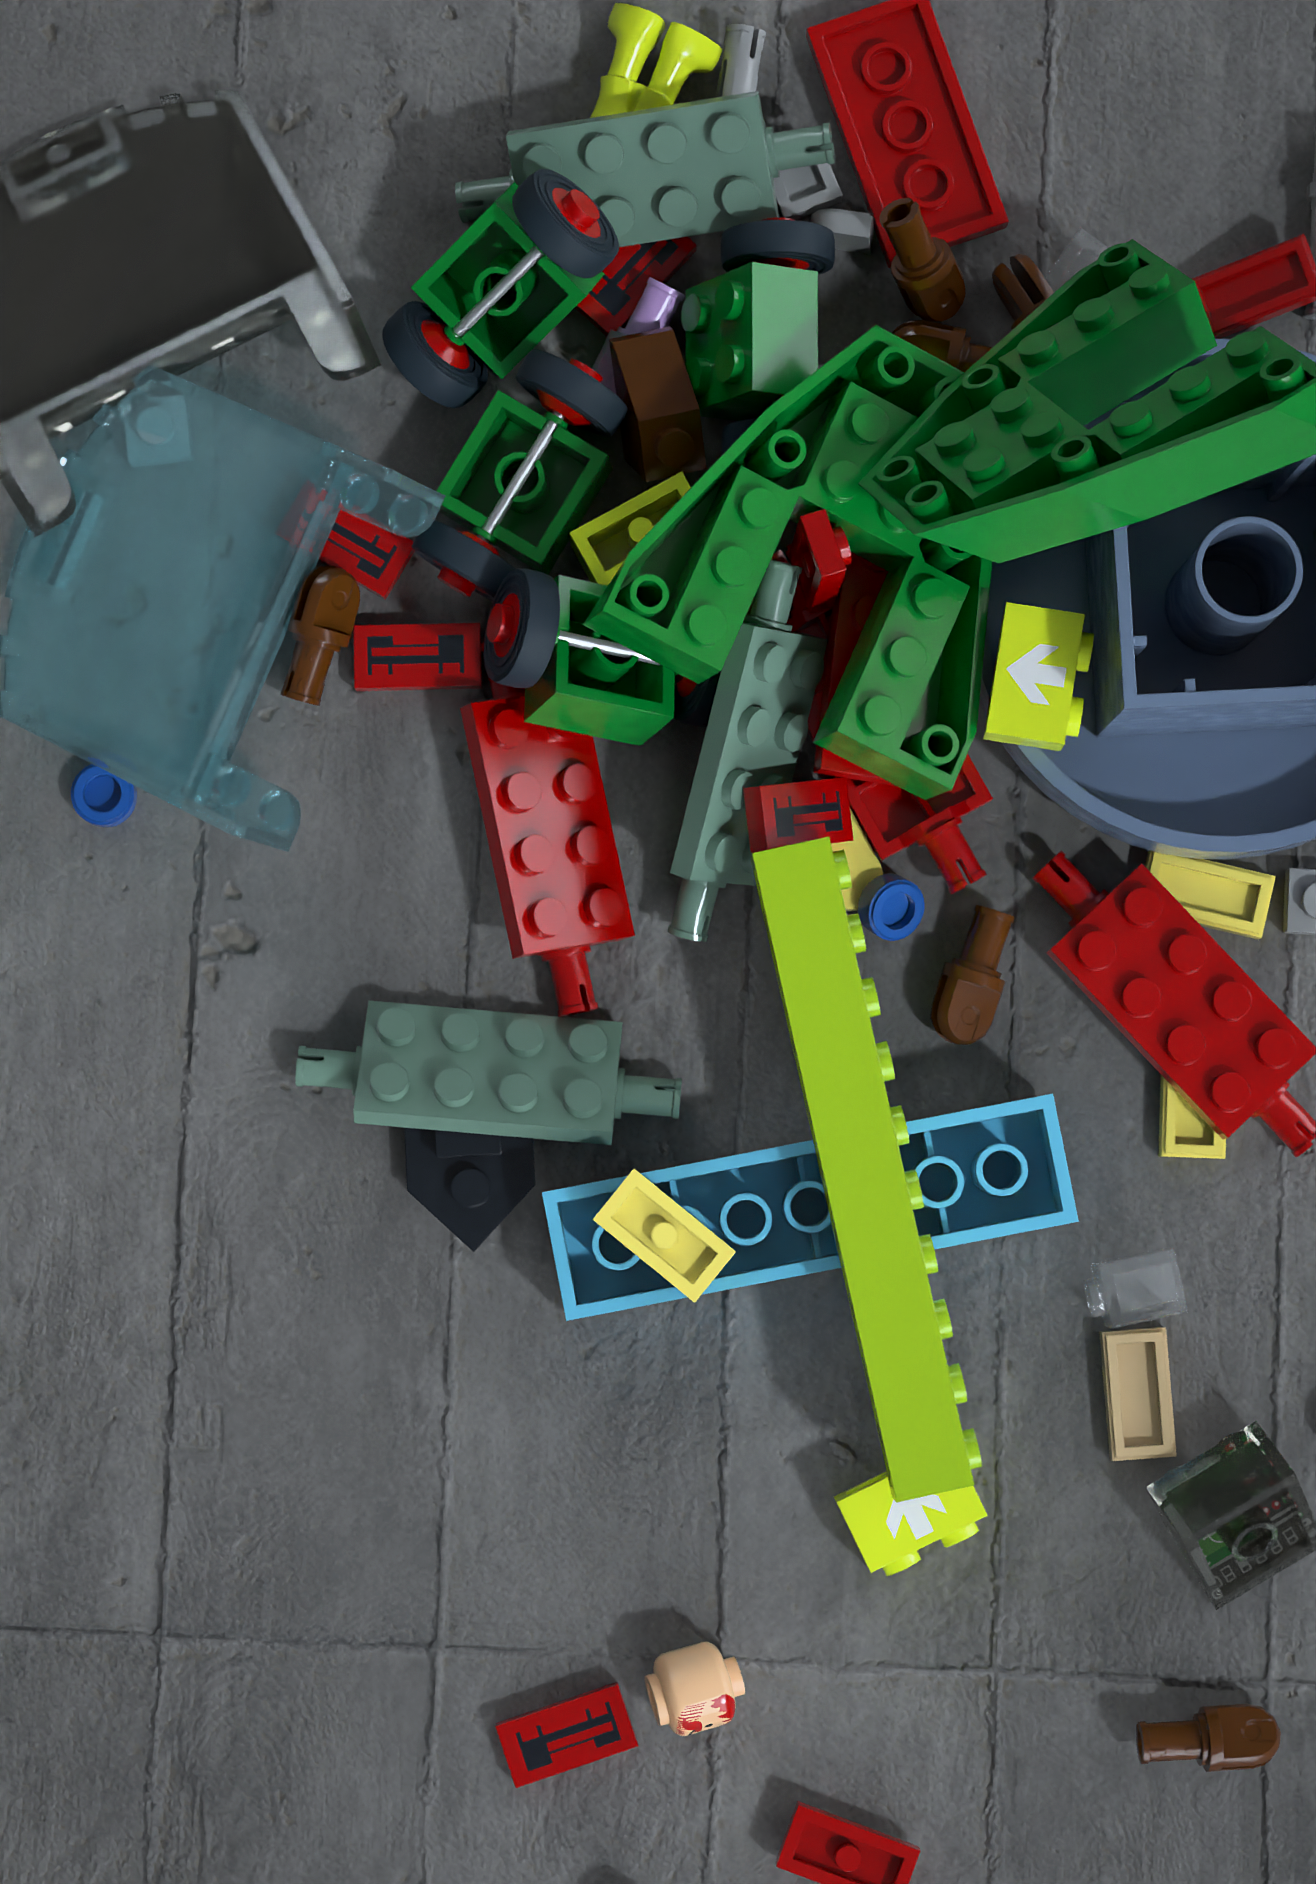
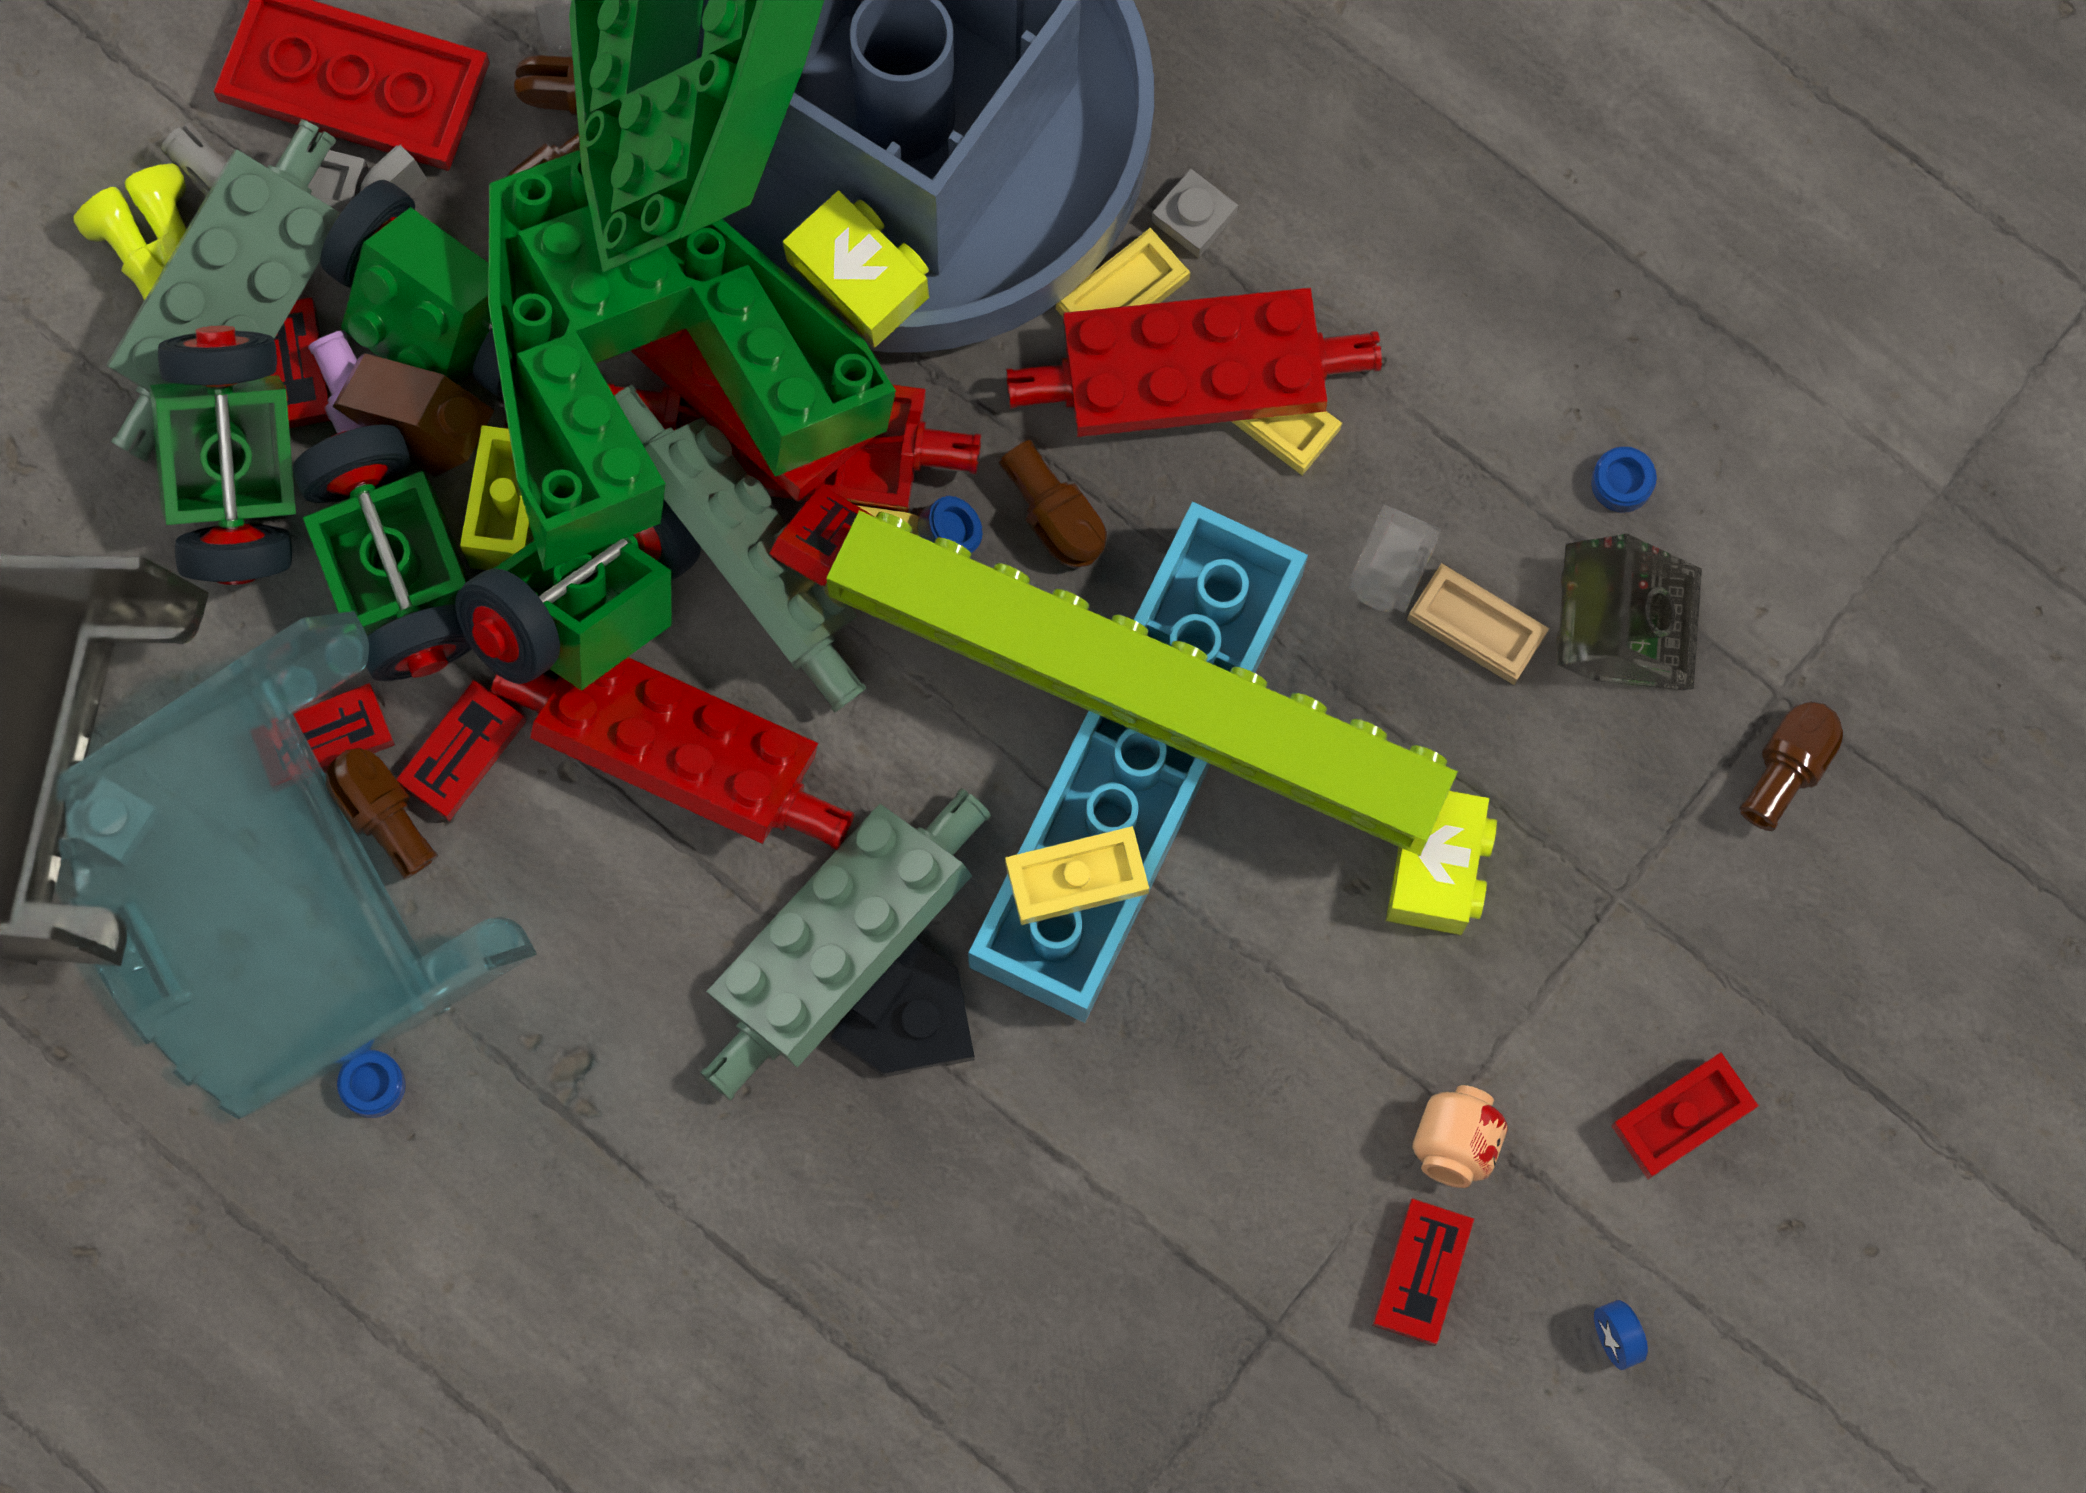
camera: 55 degrees left, 10 degrees down
(823, 556) = (638, 358): red plate -> none
(922, 264) = (468, 135): reddish brown arm -> none

